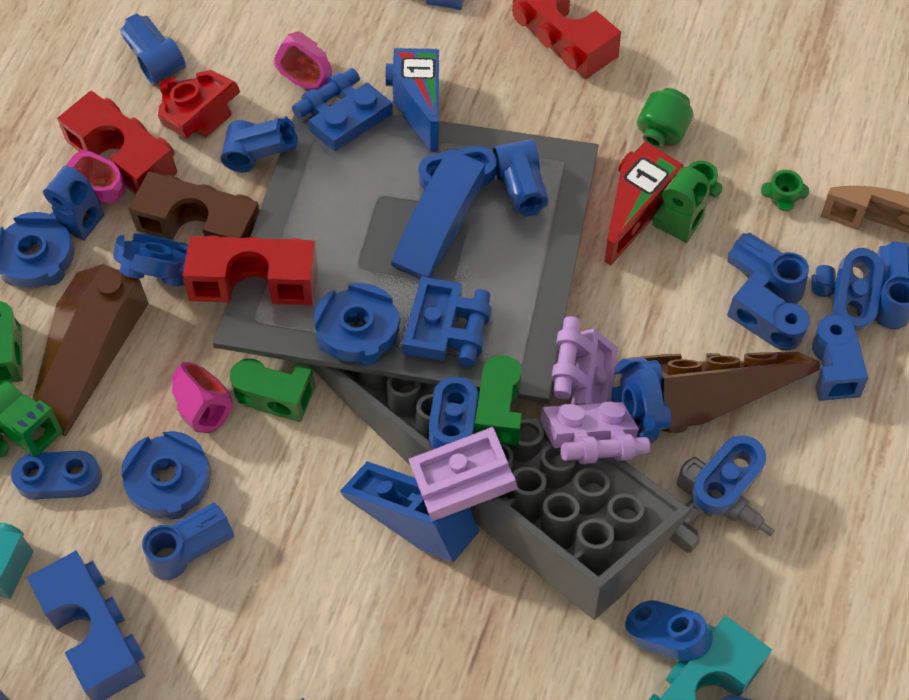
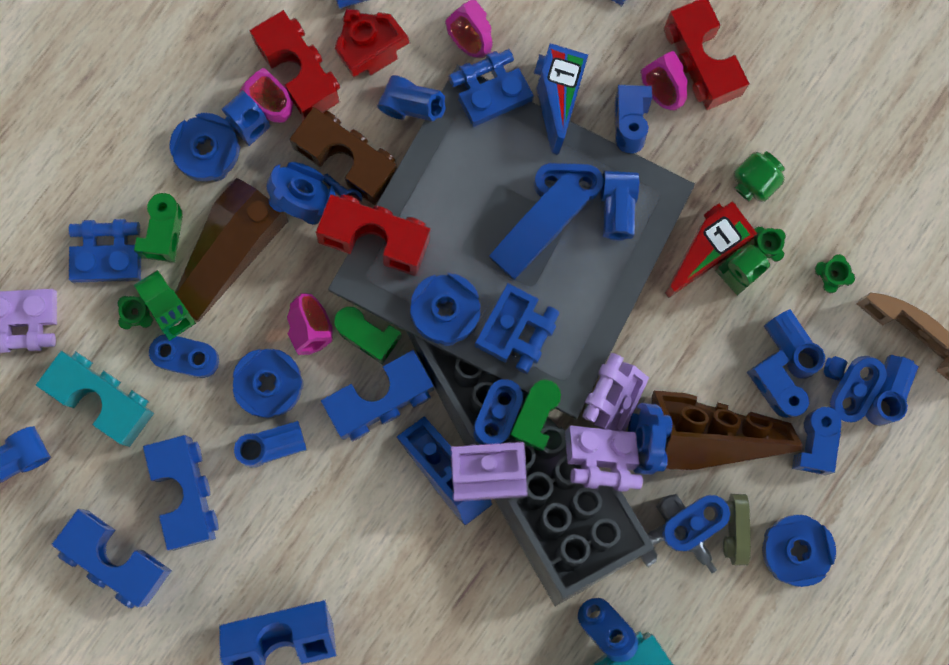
camera: 10 degrees right, 20 degrees up
(283, 476) = (354, 415): none -> blue arch
(506, 97) = (630, 125): none -> blue leg
(531, 56) = (667, 81): none -> rock
(787, 487) = (738, 543): none -> olive plate
(855, 503) = (809, 533): none -> blue plate

